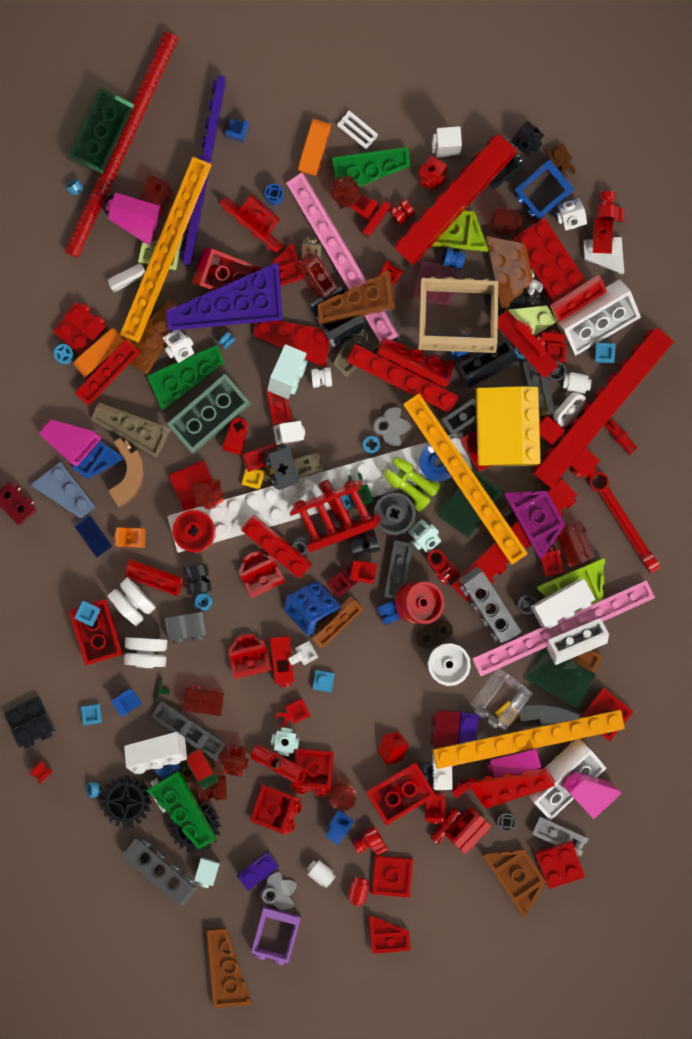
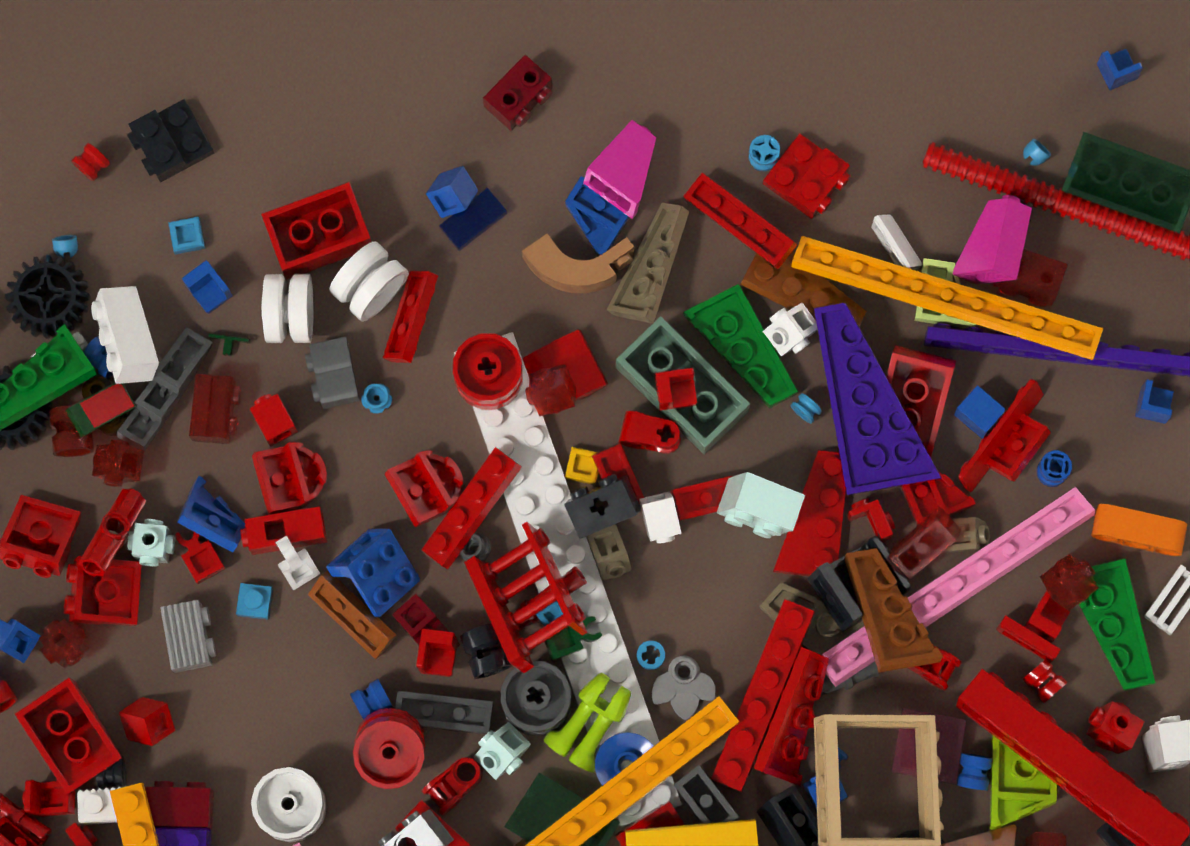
camera: 90 degrees right, 10 degrees down
(24, 131) = (1118, 68): none -> blue panel
(64, 490) = (544, 170): sand blue wing -> none
(75, 548) = (452, 191): none -> blue panel
(87, 613) = (344, 209): dark azure plate -> none
(98, 353) = (770, 204): orange beam -> none
(130, 537) = (473, 274): orange bracket -> none
(197, 579) = (411, 385): black wheel -> none
(213, 664) = (273, 419): none -> red brick
(214, 417) = (676, 389): none -> red panel
(236, 236) = (979, 411): none -> blue panel
(271, 704) = (211, 517): none -> blue wing
(299, 301) = (879, 520): none -> red bracket
(321, 377) = (756, 565): white wheel -> none
(343, 722) = (187, 636): none -> light grey brick
(434, 633) = (340, 779): dark brown plate -> none

